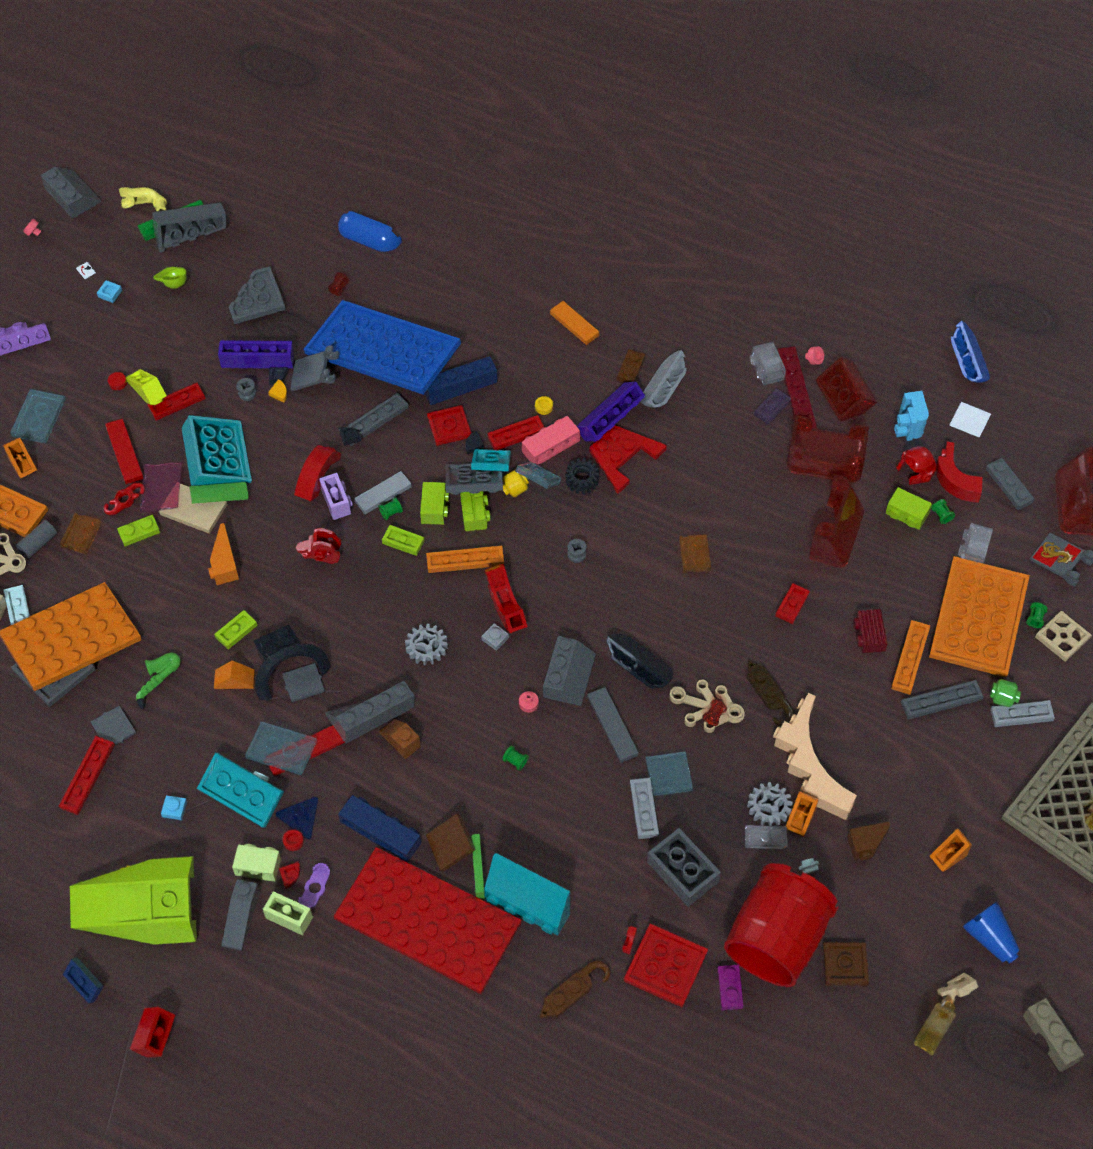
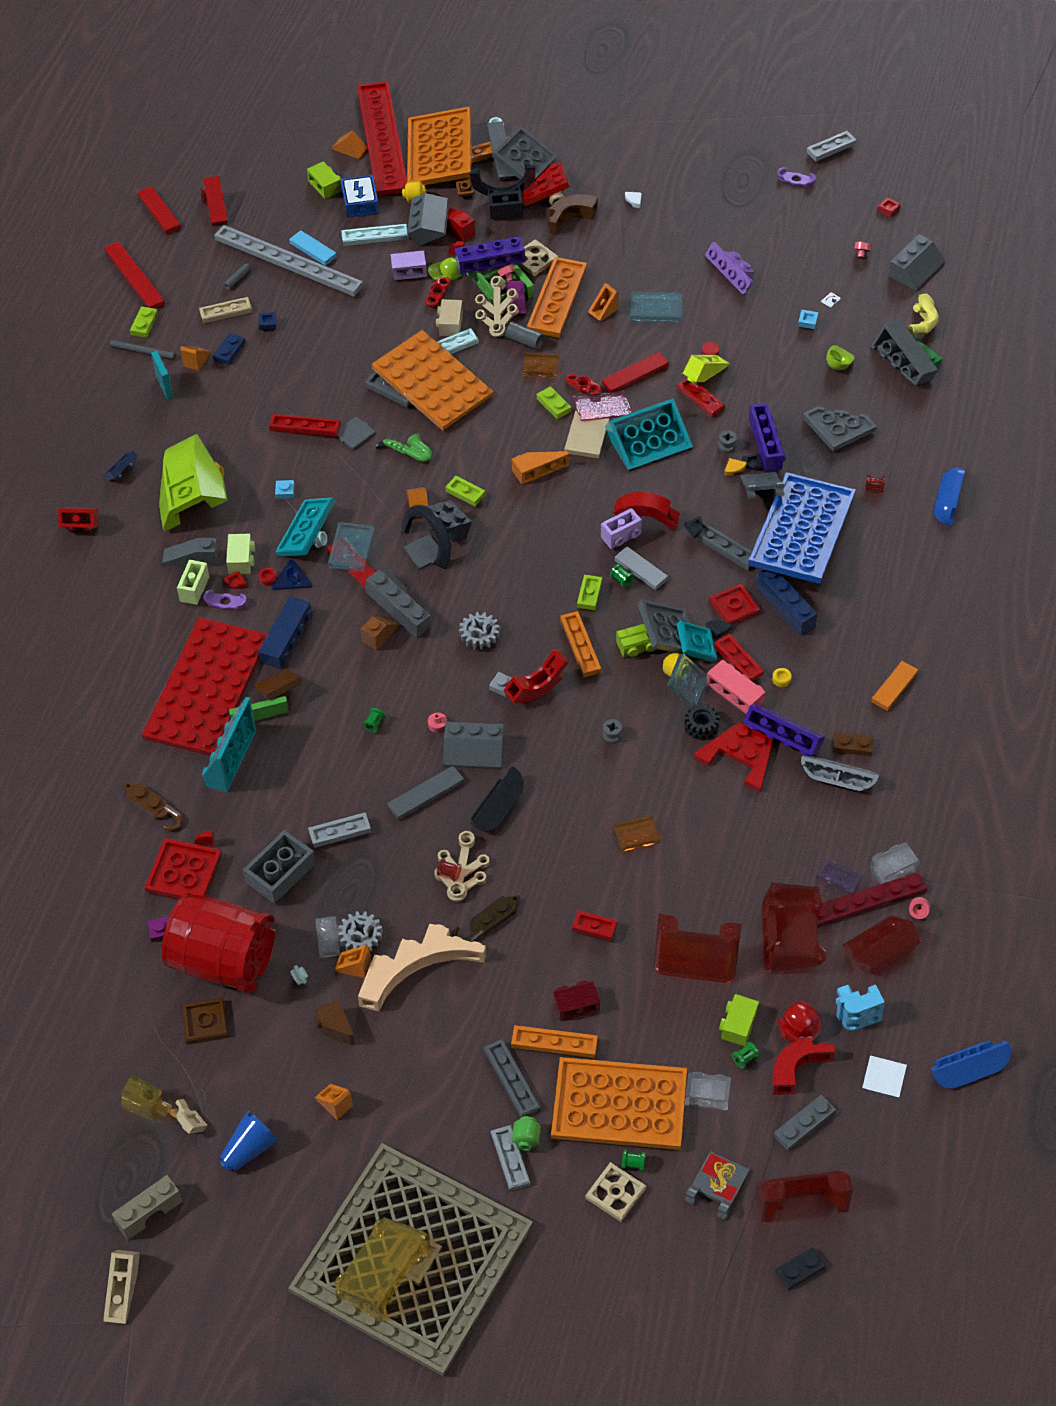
camera: 80 degrees right, 5 degrees down
(218, 492) = (604, 446): bright green tile -> none
(320, 546) = (562, 530): red hinge -> none
(433, 503) = (627, 605): lime brick -> none
(669, 773) = (382, 847): clear light blue tile -> none

